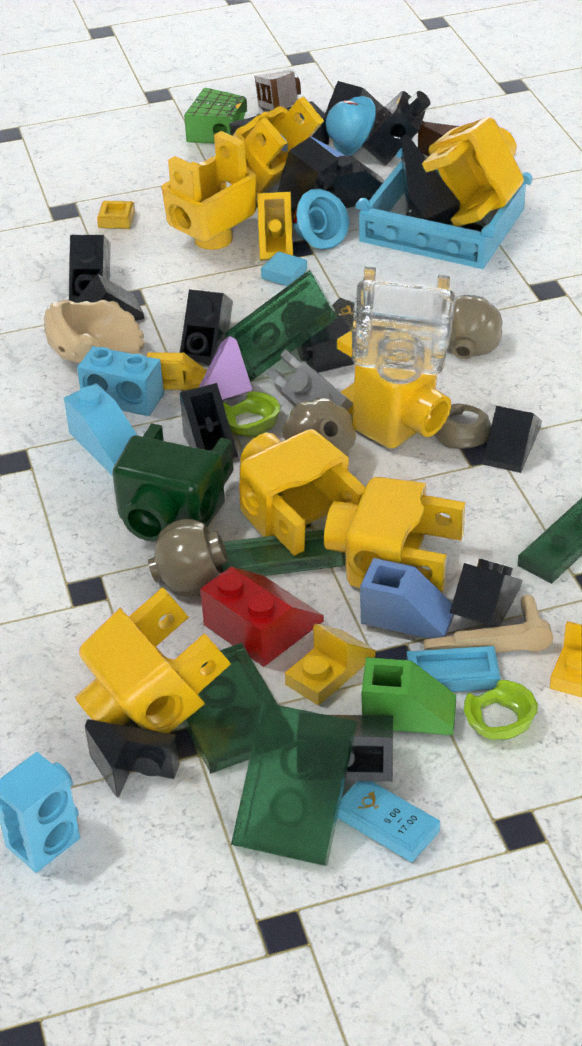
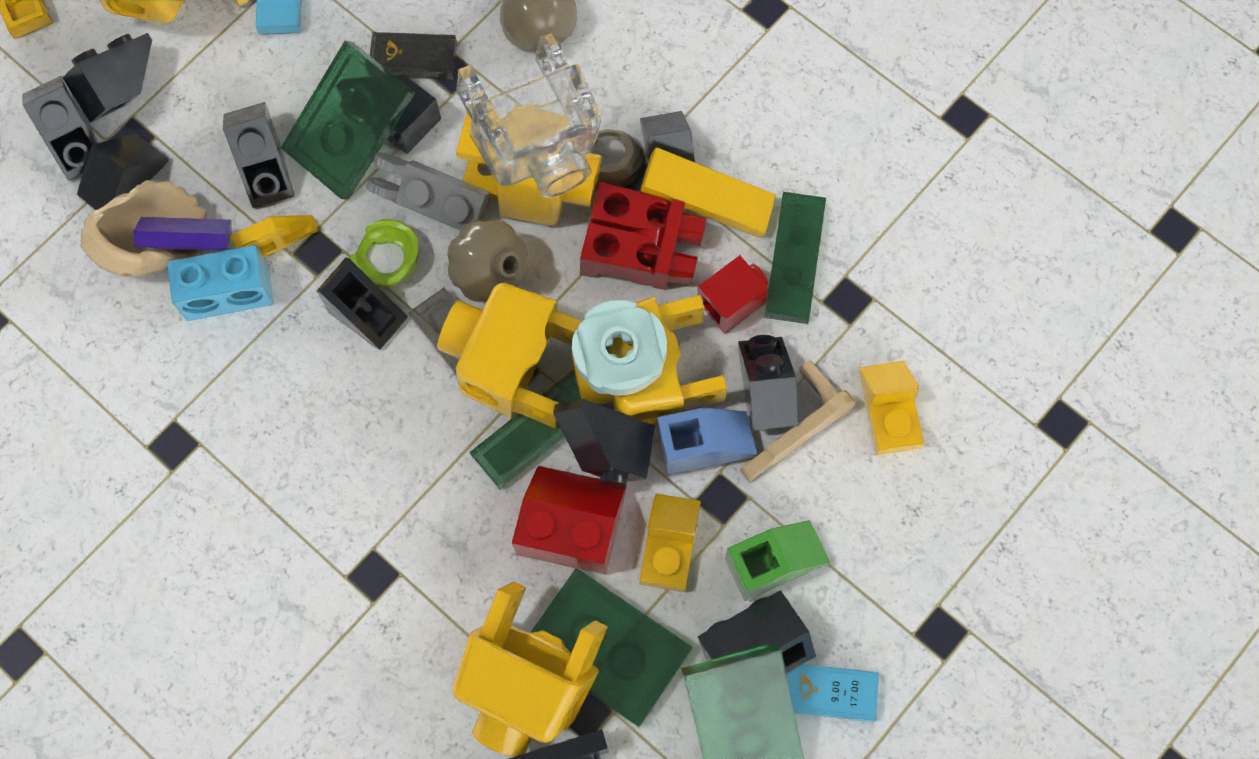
camera: 30 degrees left, 30 degrees up
(98, 424) = (264, 369): medium azure slope -> none
(114, 335) = (182, 233): none -> dark purple tile
(139, 252) = (111, 78): none -> black slope
(169, 482) = (379, 417): dark green piece -> none
(187, 557) = (459, 493): dark tan plant -> none
(228, 371) = (332, 228): lavender slope -> none
(323, 560) = (606, 441): none -> black slope
(354, 501) = (606, 371): none -> light aqua plate
(450, 468) = (637, 238): none -> red hips
(460, 667) = (784, 485): medium azure tile -> none
(499, 530) = (733, 293): none -> red brick
(506, 694) = (874, 497): lime piece -> none
(524, 464) = (708, 192): none -> yellow tile

